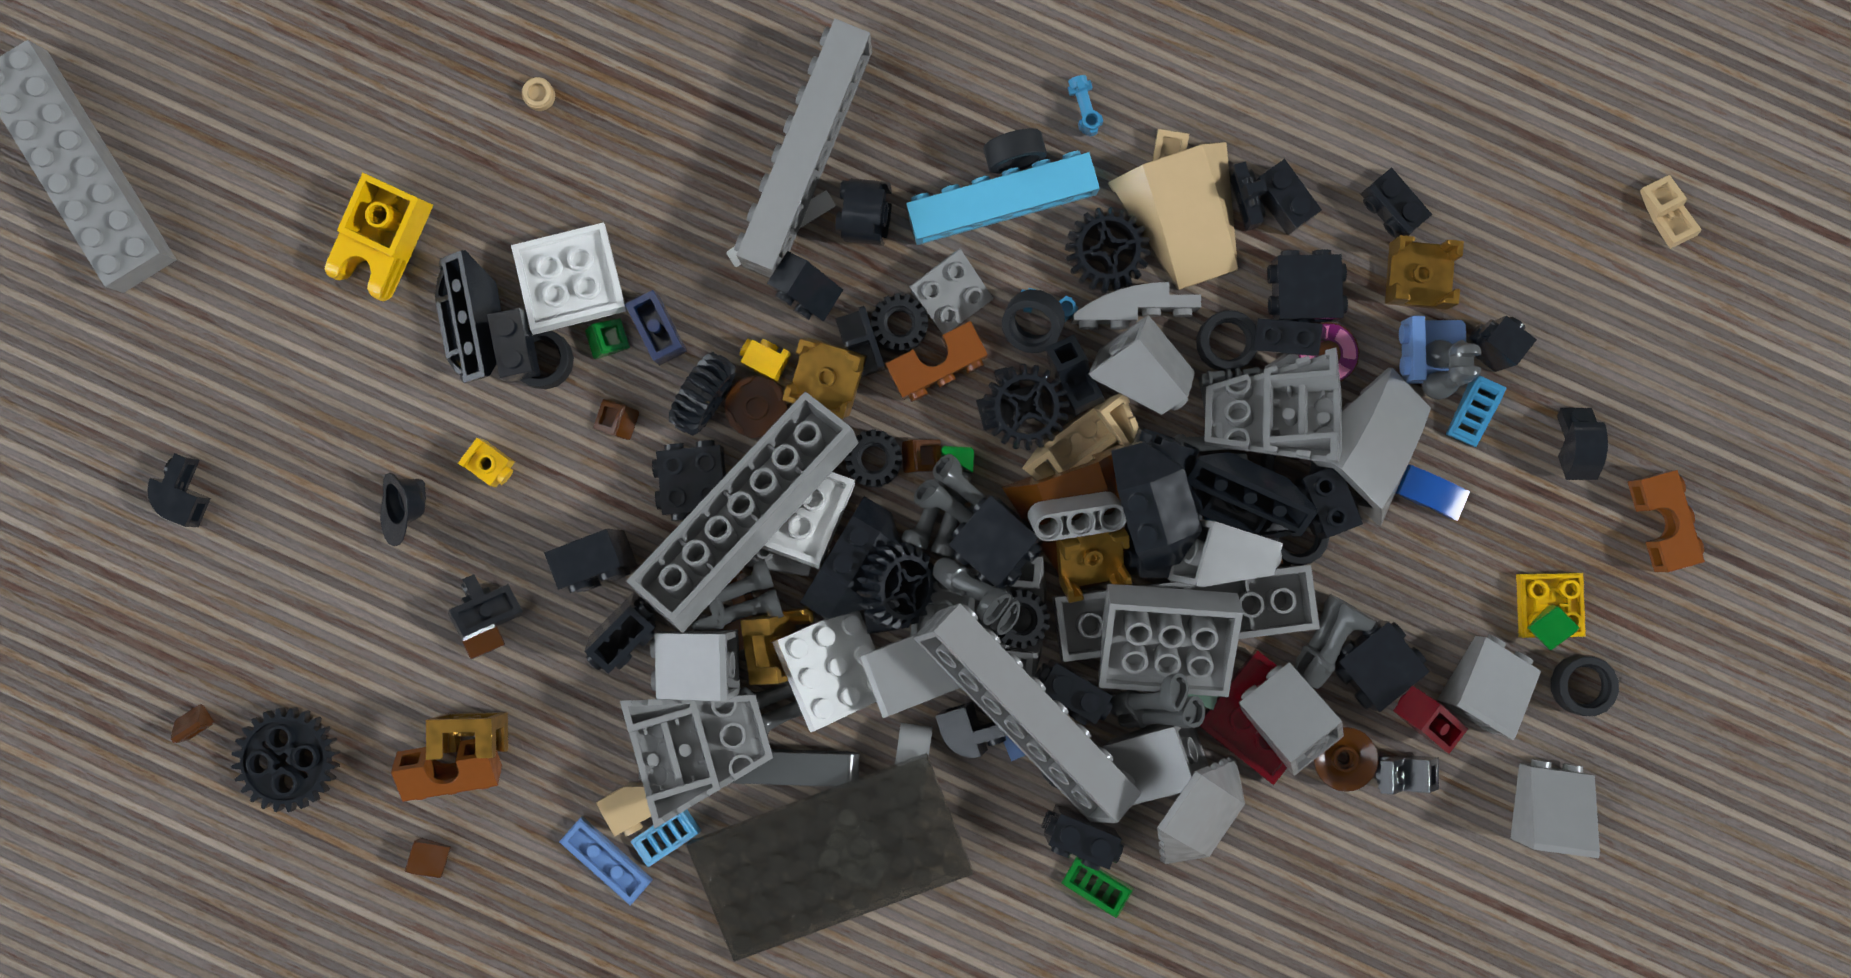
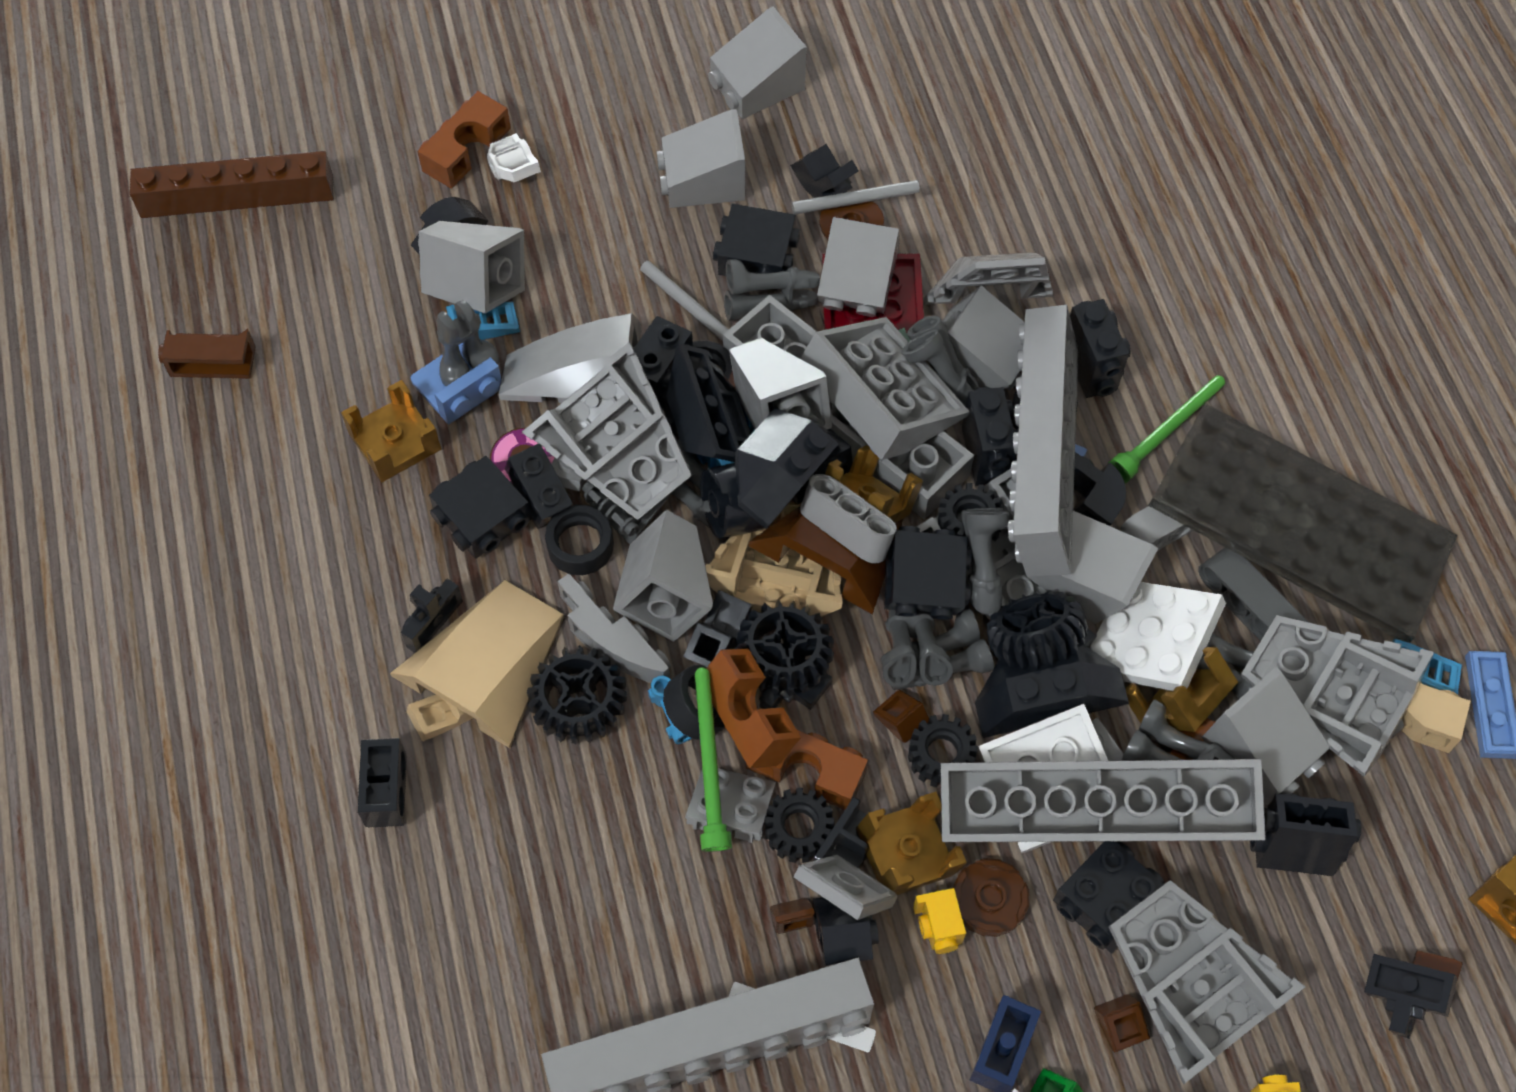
camera: 125 degrees left, 25 degrees down
(591, 559) = (1275, 909): black brick -> none
(597, 479) = (1197, 977): none -> light grey wedge
(702, 393) = (1027, 943): black gear -> none
(826, 304) = (846, 886): none -> light grey plate
(847, 271) = (792, 915): none -> reddish brown slope
(864, 211) = (721, 932): black brick -> none
(930, 255) = (715, 833): none -> bright green piece
(963, 454) = (871, 677): green slope -> none
(977, 779) = (1129, 462): none -> bright green piece
(1003, 197) = (604, 824): medium azure brick -> none
(1014, 150) = (549, 839): black tyre -> none
(1017, 341) = (759, 734): none -> dark orange arch
(1091, 119) = (463, 804): dark azure bar -> none
(1115, 883) = (1124, 297): green slope -> none
(1142, 75) = (382, 782): none -> black brick
(1288, 197) = (410, 565): black brick -> none
(1363, 778) = (855, 197): none -> light grey bar
(1371, 577) = (684, 299): none -> light grey bar
(1395, 204) = (343, 497): black bracket -> none
(1430, 719) = (769, 181): dark red brick -> none
(1432, 492) = (578, 300): blue slope -> none
(1502, 342) = (410, 330): black brick -> none
(1527, 430) = (472, 263): none -> light grey slope
(1553, 626) = (618, 152): green slope -> none
(1558, 589) = (599, 173): yellow tile -> none
(1600, 188) = (208, 355): none -> reddish brown window
(1609, 685) = (641, 93): black tyre -> none
(1617, 544) = (512, 159): none -> white piece
(1667, 209) = (191, 298): tan slope -> none
(1758, 309) = (231, 184): none -> reddish brown brick

